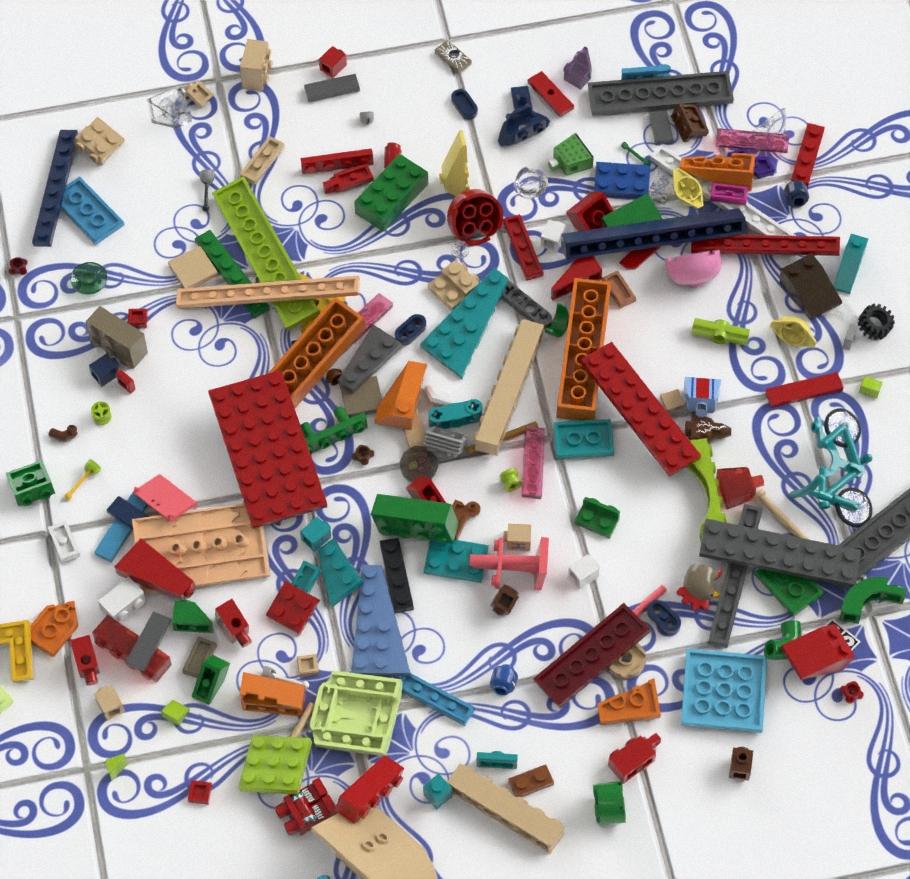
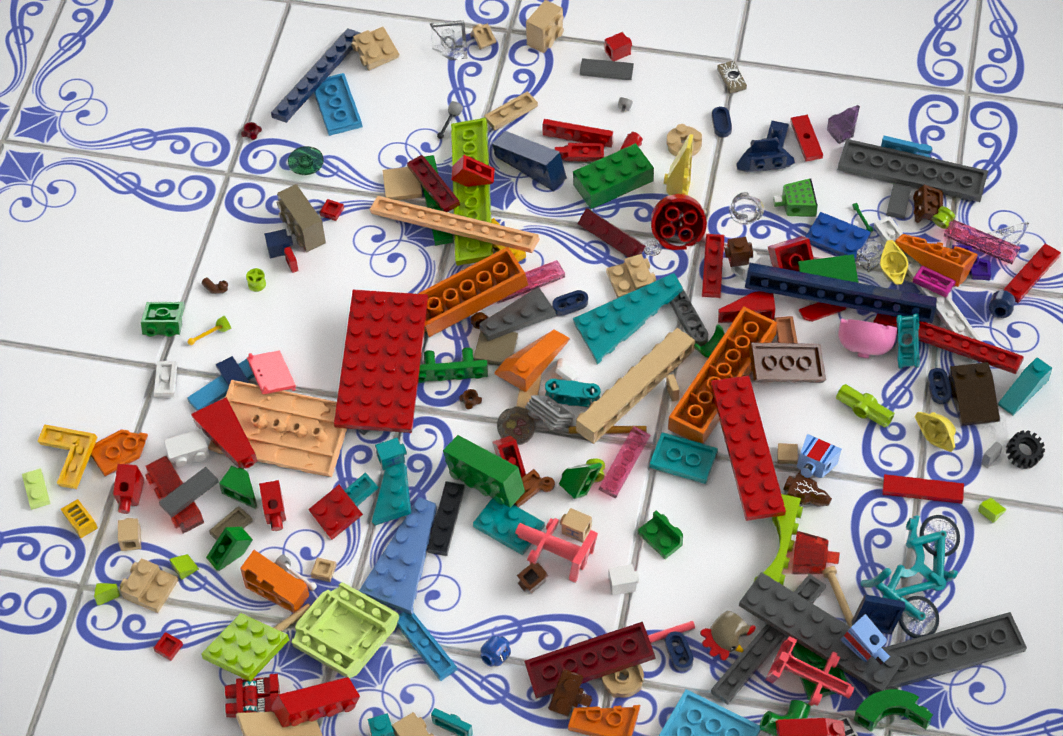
camera: 25 degrees right, 5 degrees down
(66, 707) = (85, 528): none -> yellow slope
(151, 743) = (148, 585): none -> tan plate
(227, 259) = (433, 184): none -> dark red plate
(261, 235) = (472, 172): none -> red slope
(306, 202) = (531, 159): none -> dark blue wedge
(416, 250) = (610, 234): none -> dark red plate
(438, 126) = (680, 133): none -> tan plate
(502, 493) = (579, 479): none -> green slope
(543, 377) = (672, 387): none -> tan tile
(546, 227) = (738, 251): none -> reddish brown brick
(588, 692) = (568, 693): none -> reddish brown hinge
(636, 316) = (787, 362): none -> plate
(710, 129) = (943, 217): none -> lime wheel
(736, 270) = (908, 328): none -> teal piece
(761, 590) = (786, 661): none -> coral piece
(777, 291) = (939, 387): none -> dark blue plate
(822, 518) = (881, 611): none -> dark blue plate
(826, 546) = (866, 640): none -> light blue torso

